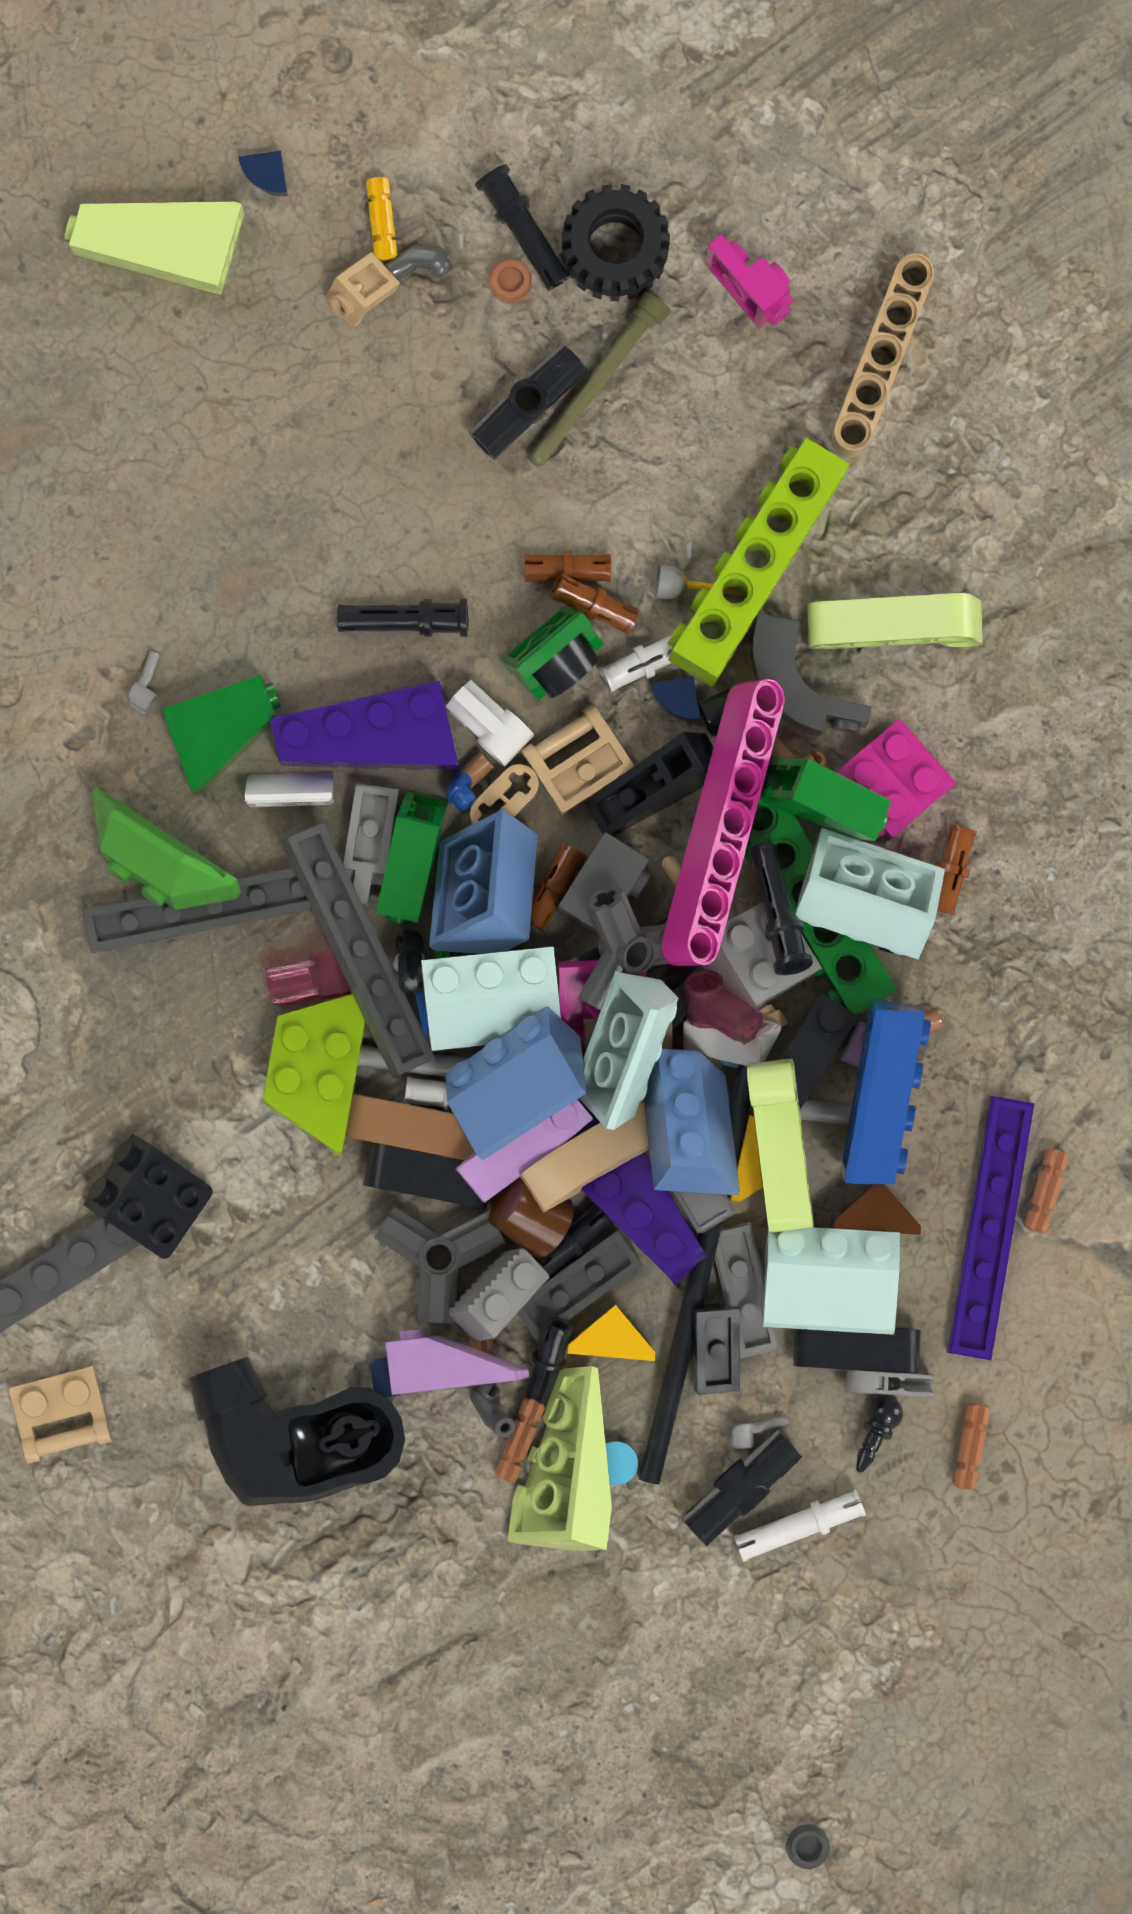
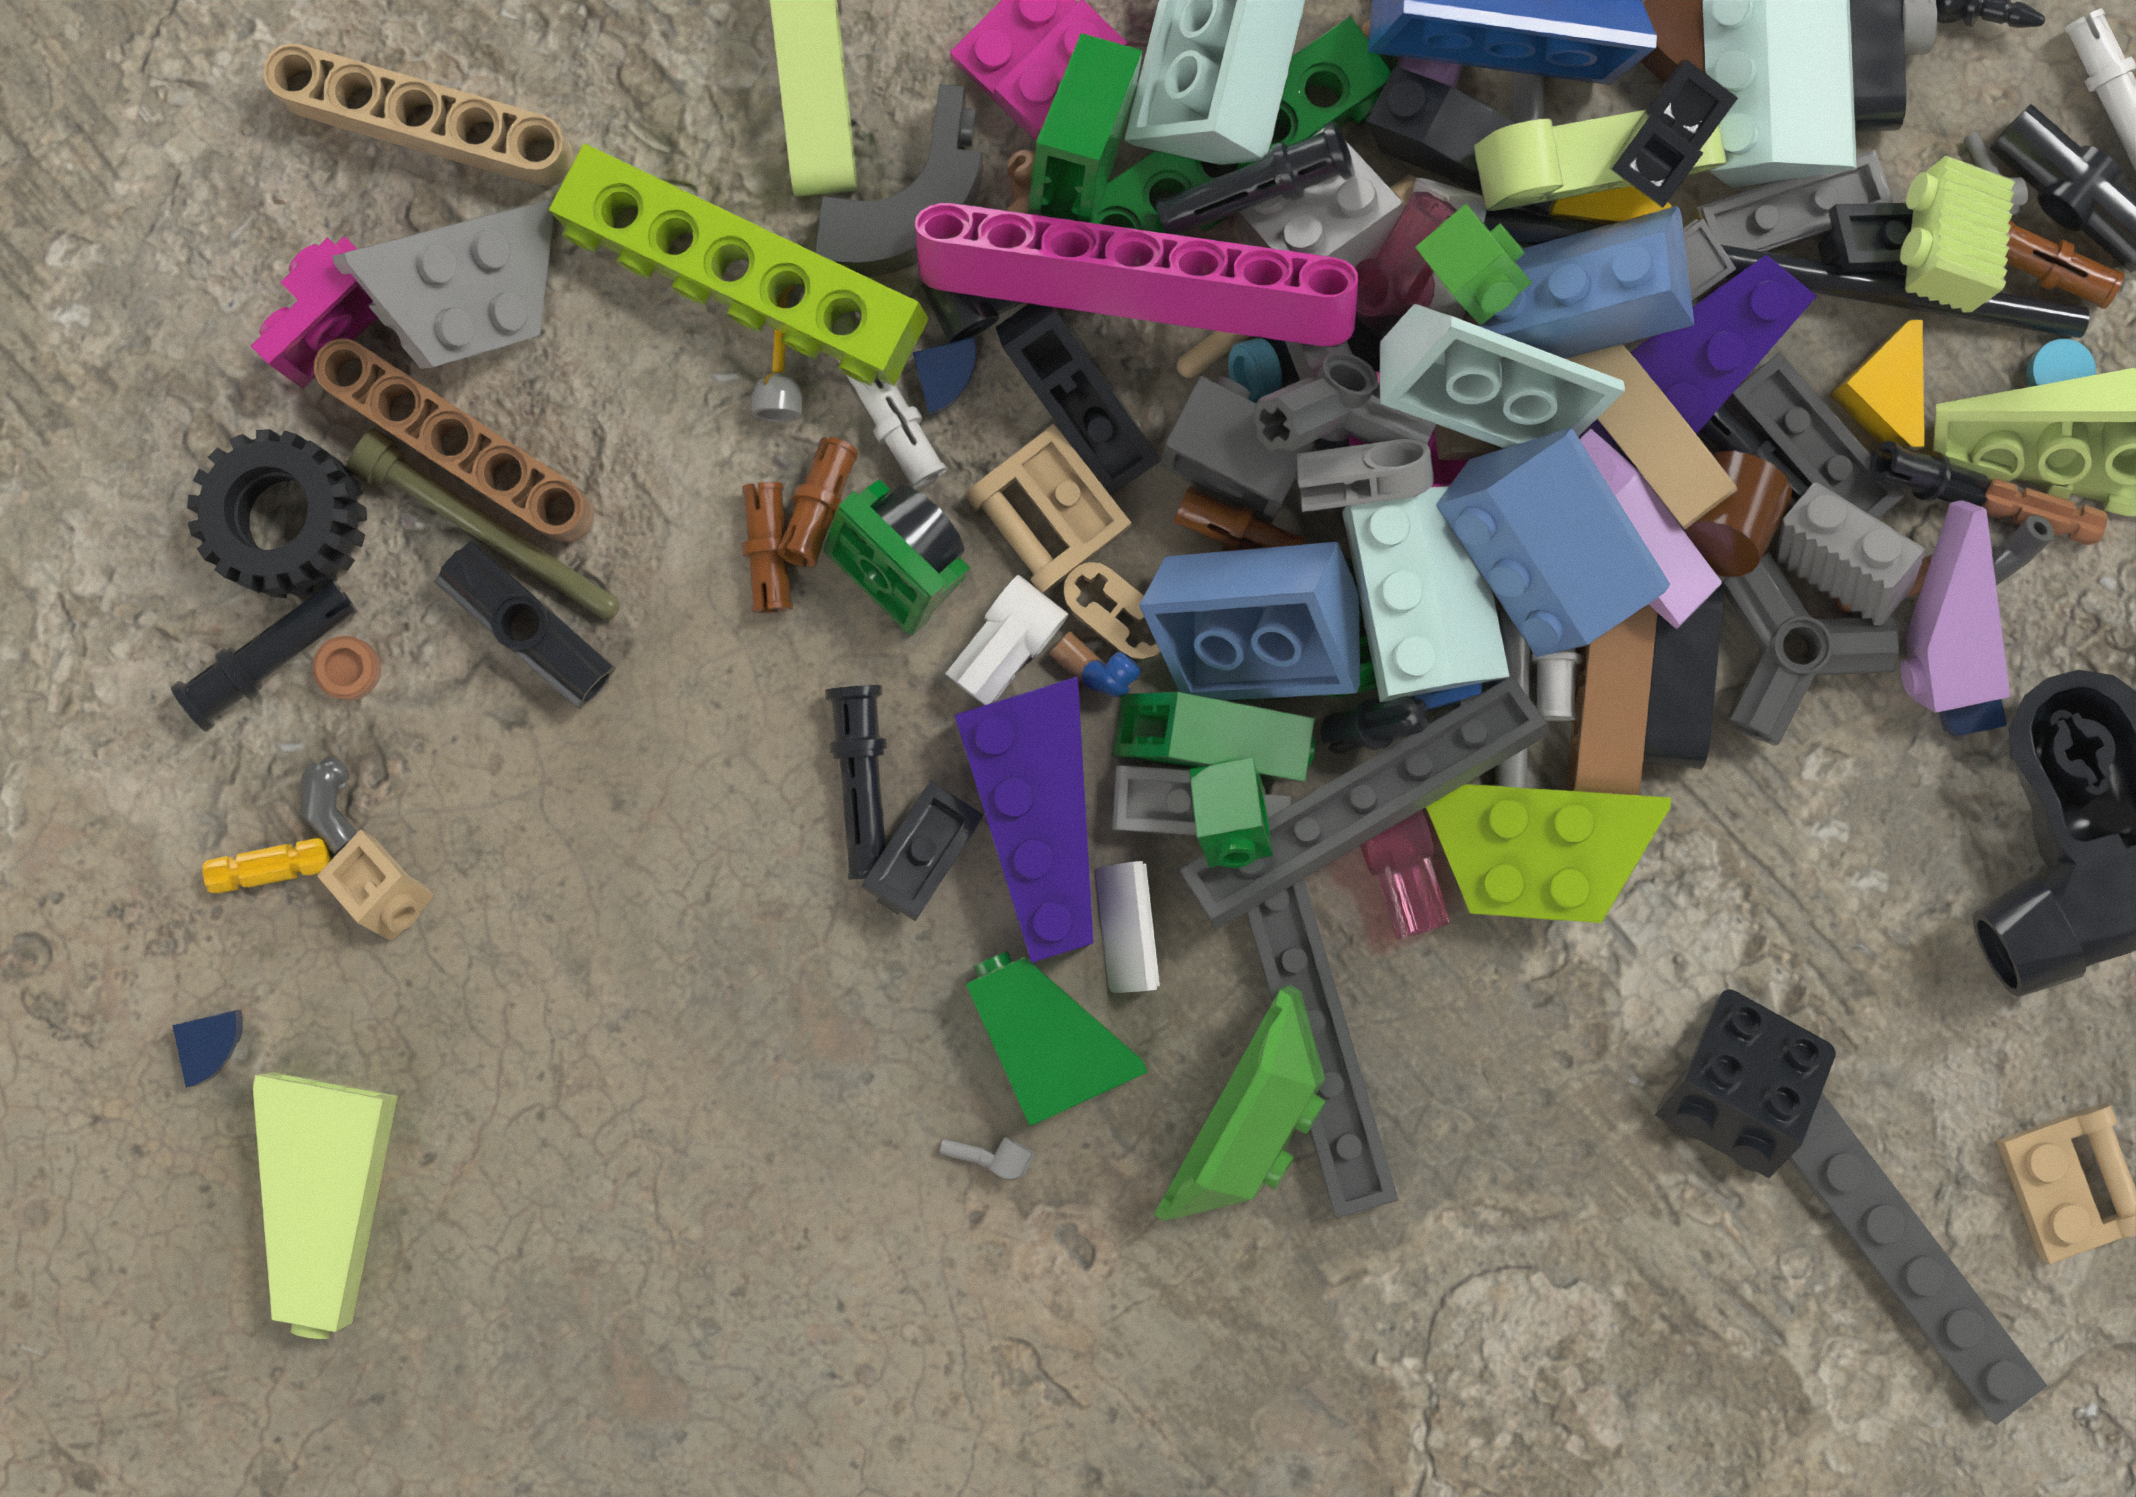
camera: 90 degrees left, 0 degrees up
(352, 654) = (922, 851): none -> black plate
(356, 857) = (1231, 813): none -> brick
(570, 955) = (1364, 474): none -> light grey piece
(656, 906) = (1255, 367): none -> medium azure tile
(661, 343) = (429, 424): none -> medium nougat beam
(676, 1491) = (2093, 282): none -> dark orange pin
(706, 1045) = (1475, 263): none -> bright green brick
(711, 1389) = (1957, 234): none -> yellowish green brick
(760, 376) = (460, 283): none -> light grey wing
(786, 1189) = (1672, 132): none -> black slope

